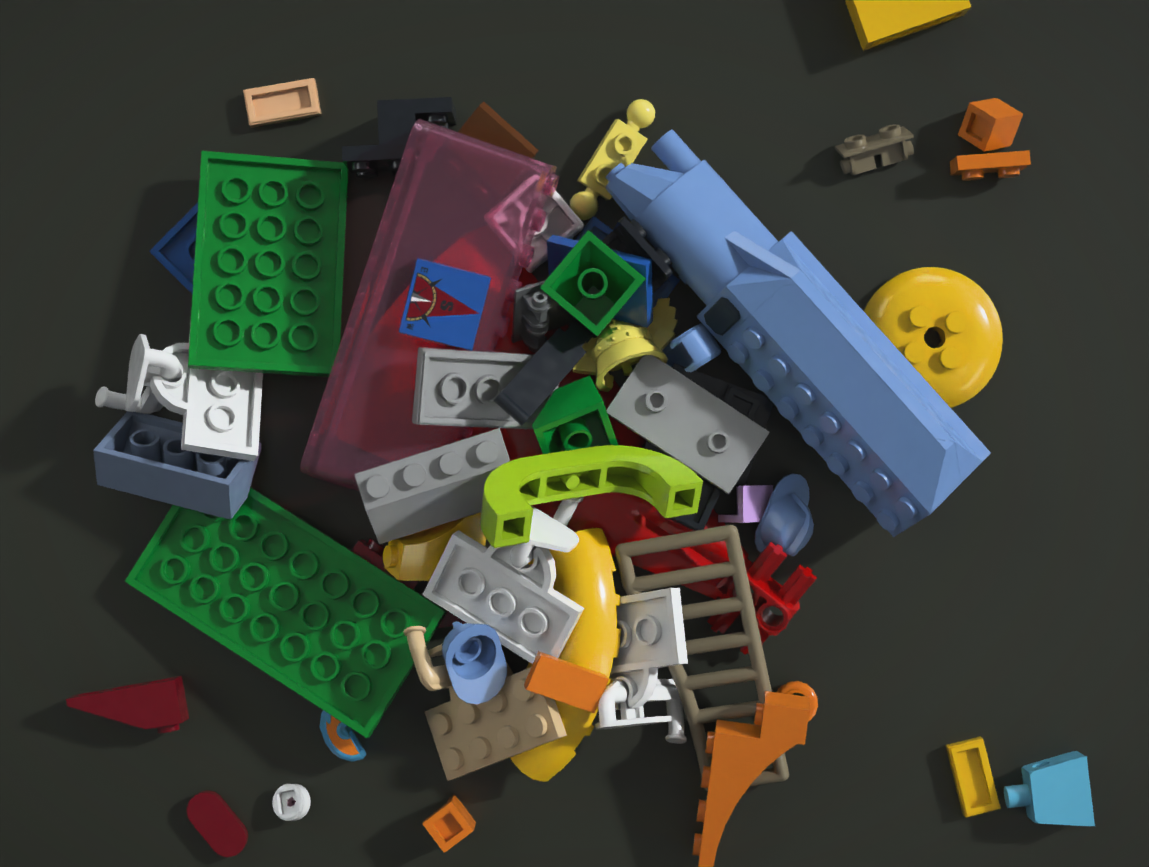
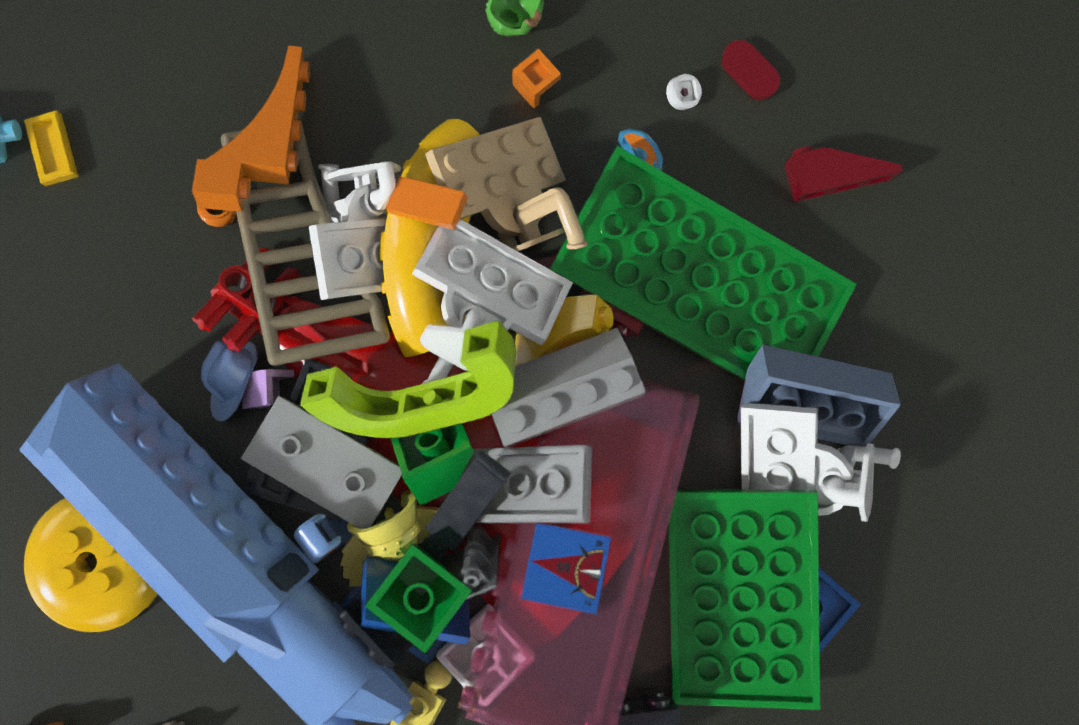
camera: 175 degrees right, 5 degrees down
(474, 661) = (517, 218): medium blue piece -> none

